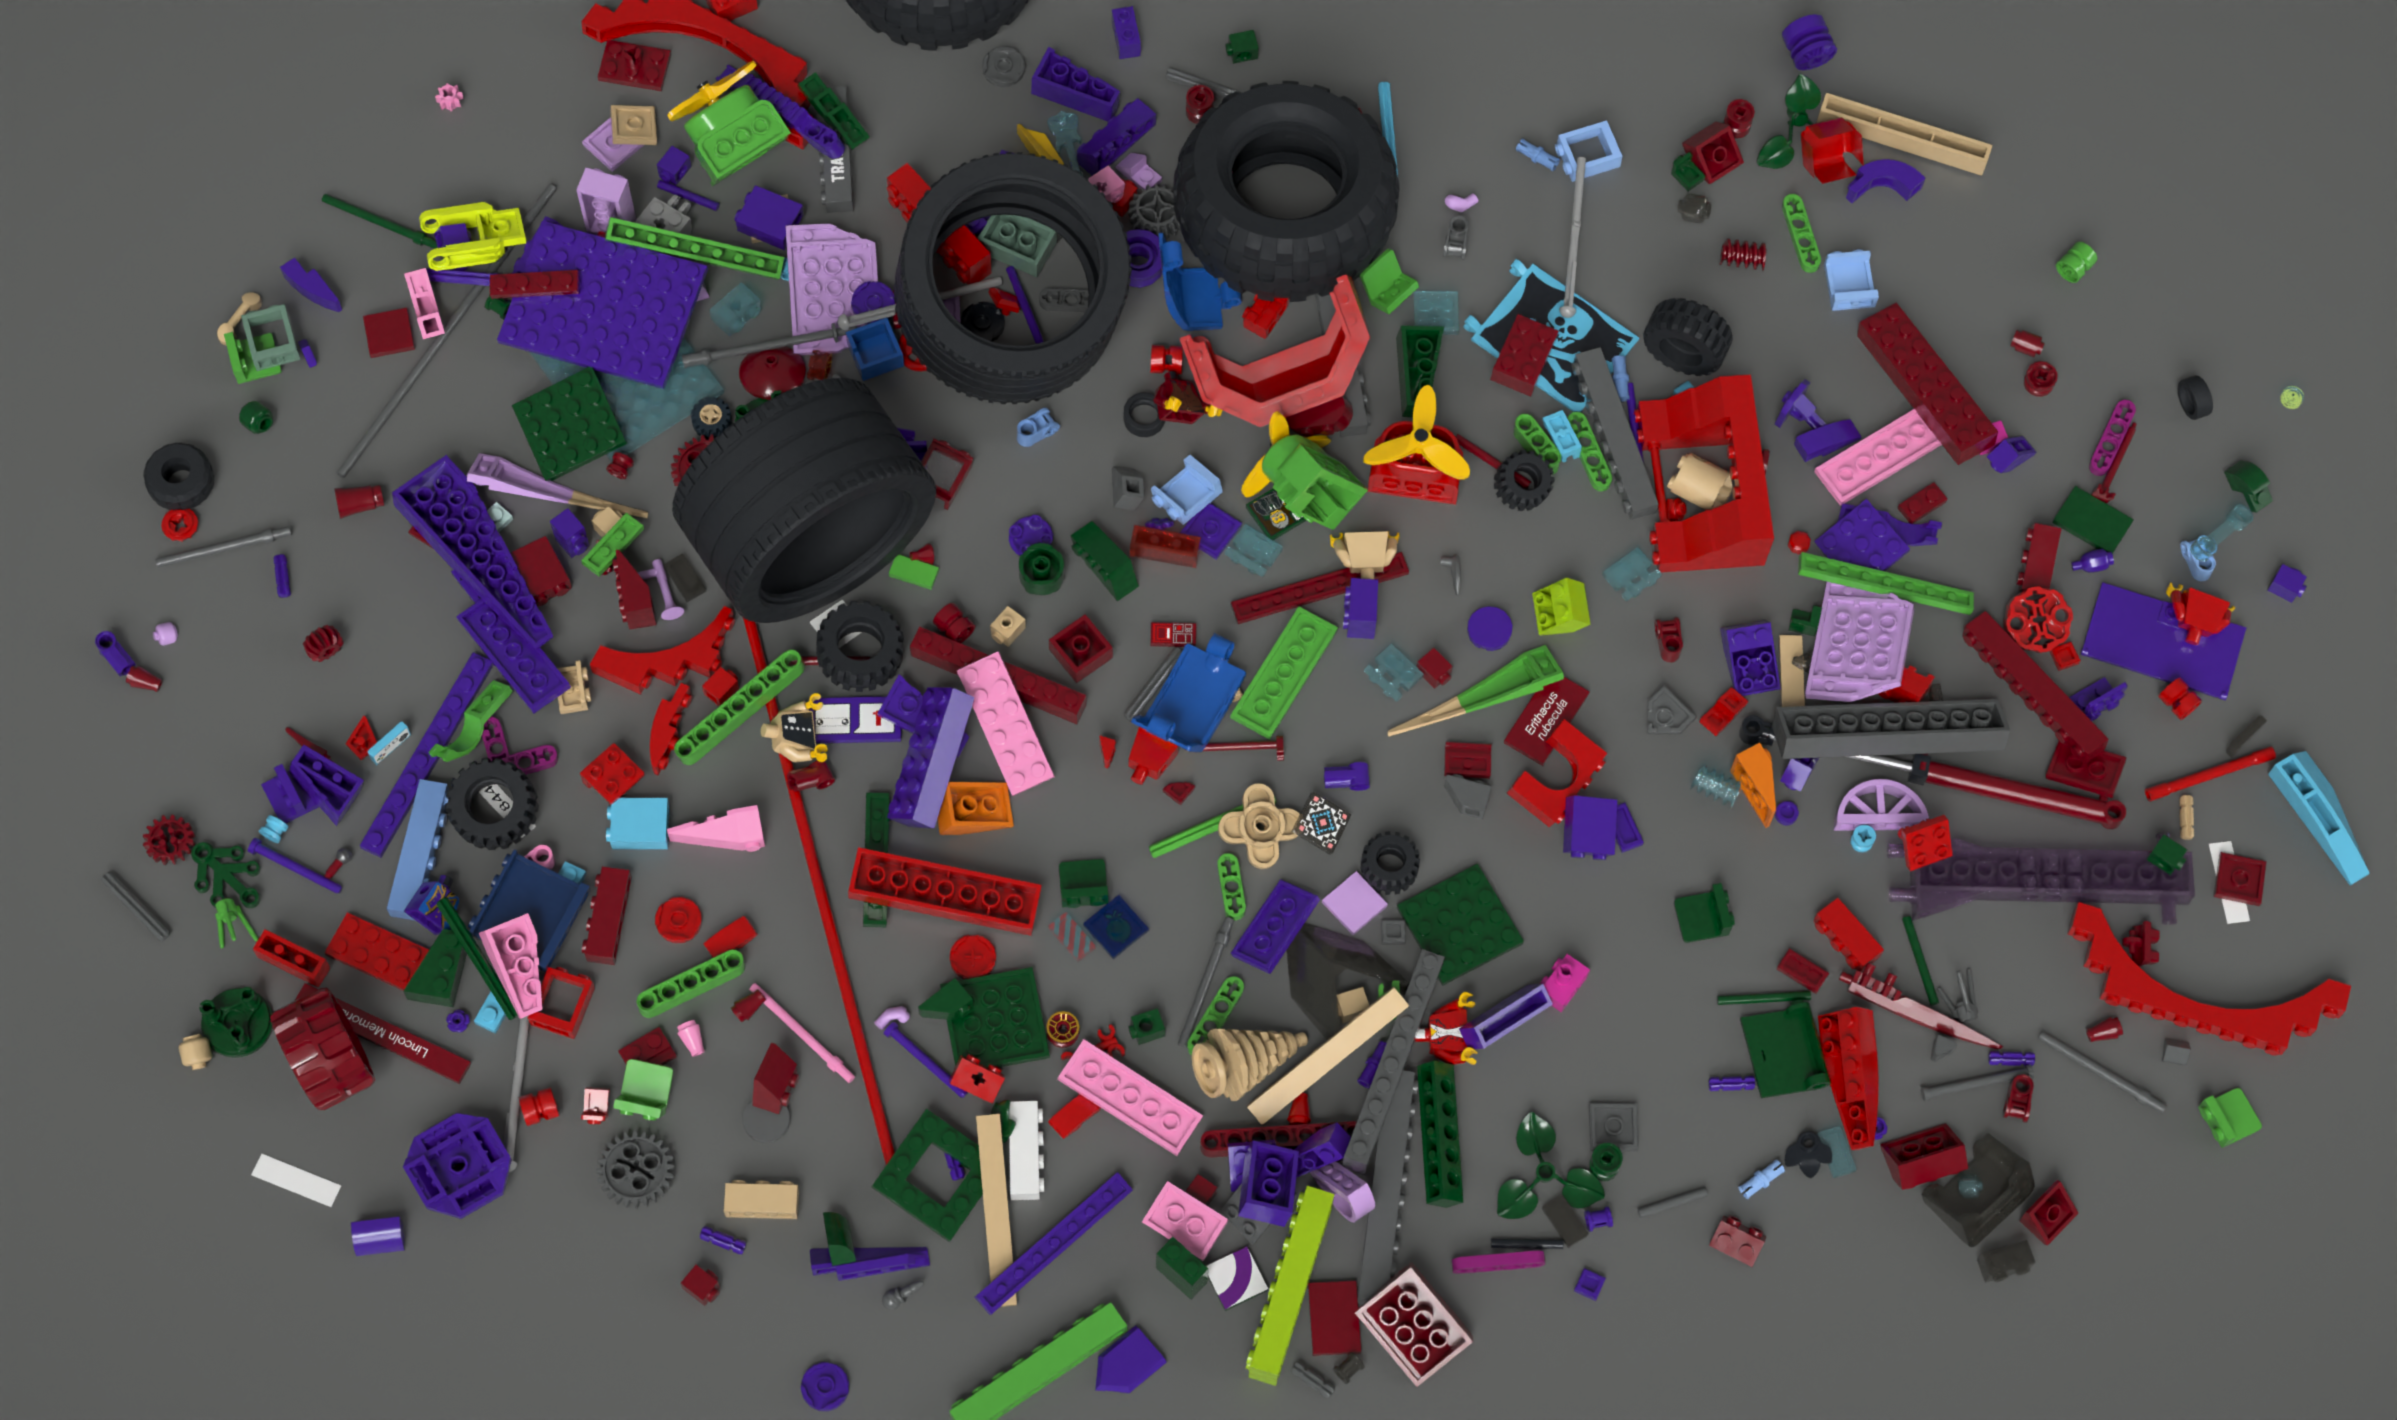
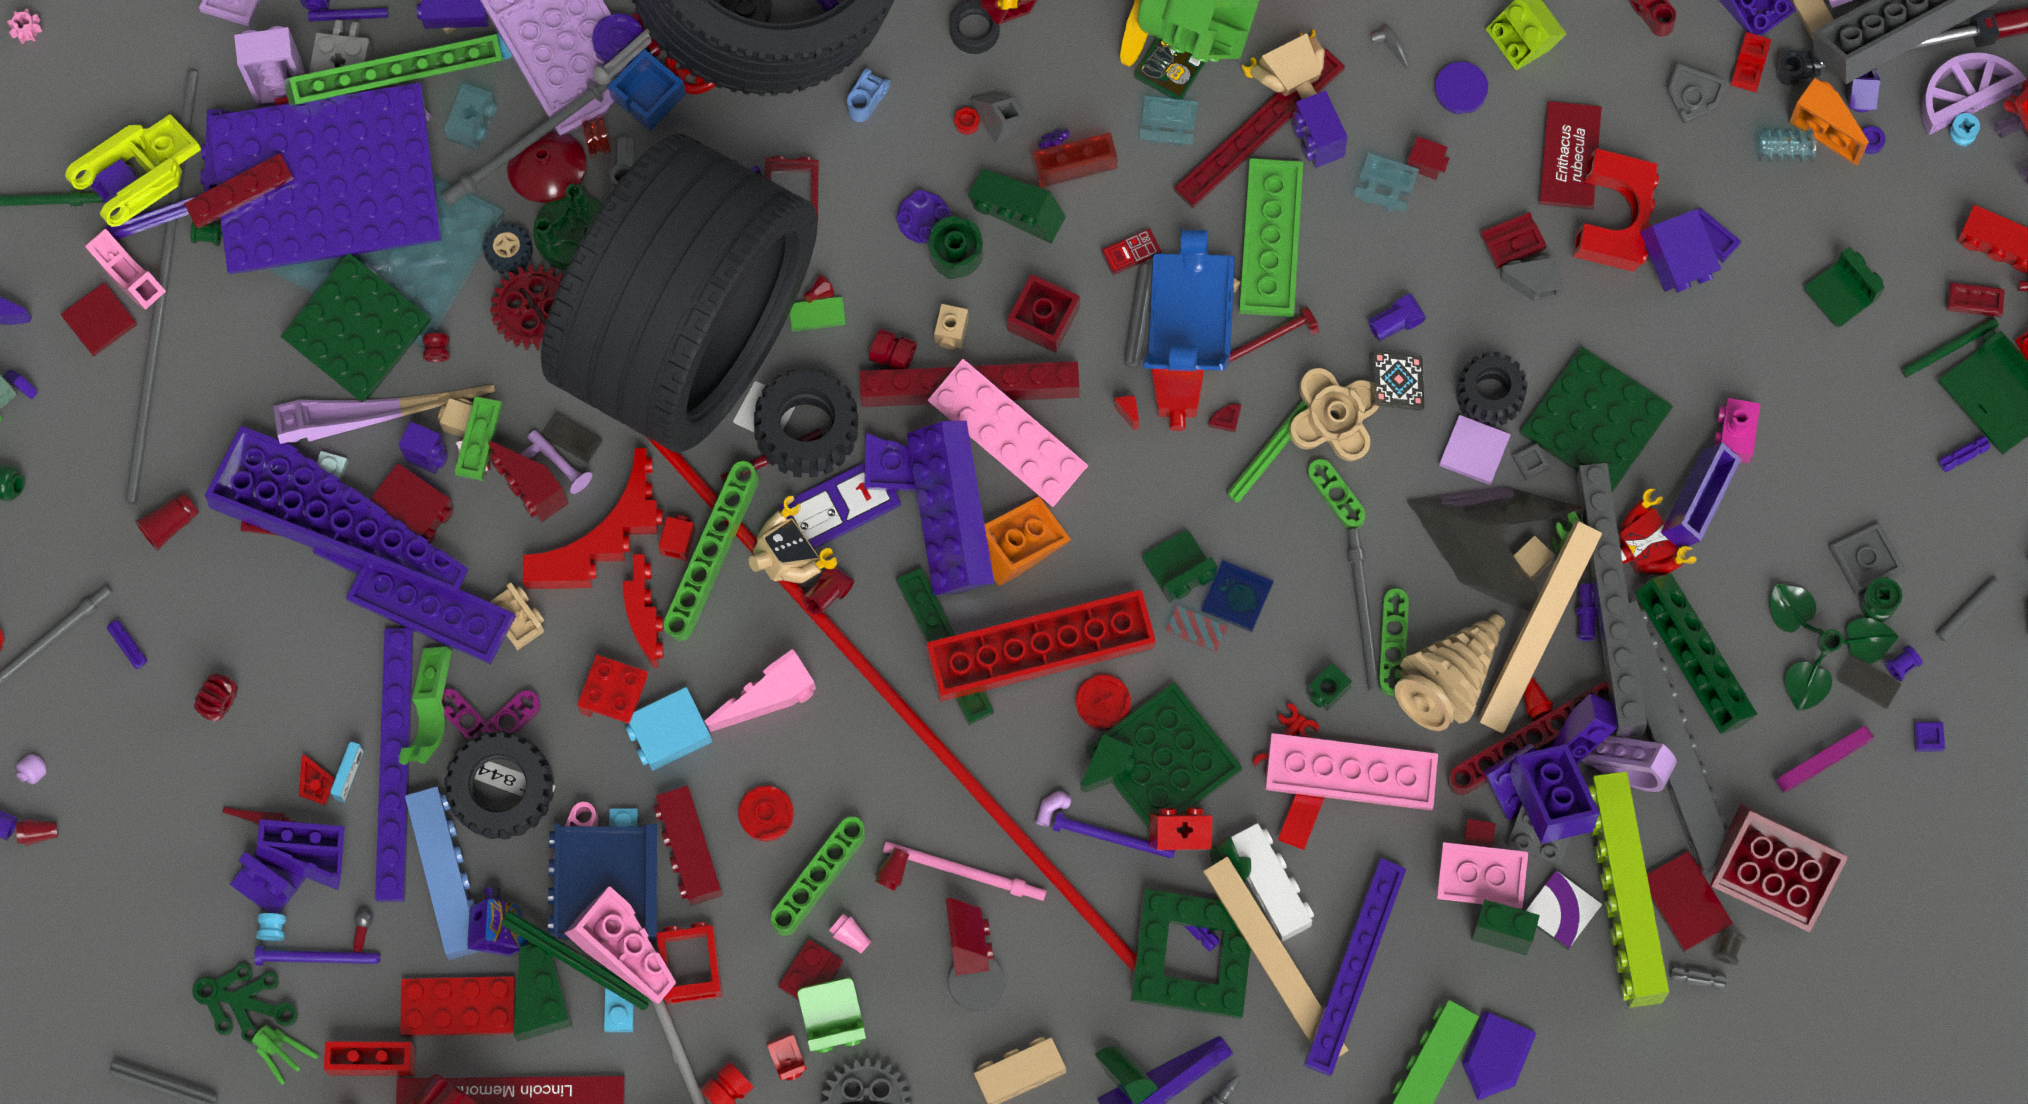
camera: 20 degrees left, 5 degrees up
(161, 851) = (145, 993): dark red gear -> none
(462, 1025) = (587, 1046): dark purple plate -> none
(731, 937) = (834, 806): red slope -> none
(1056, 1022) = (1246, 723): dark red wheel -> none
(1101, 481) = (966, 120): none -> red tile
(1187, 491) = (1066, 88): light blue panel -> none
(1214, 528) = (1113, 114): dark purple tile -> none
(1275, 926) = (1406, 515): dark purple tile -> none
(1518, 678) = (1520, 128): bright green plate -> none
(1527, 1243) = (1842, 725): black bar -> none

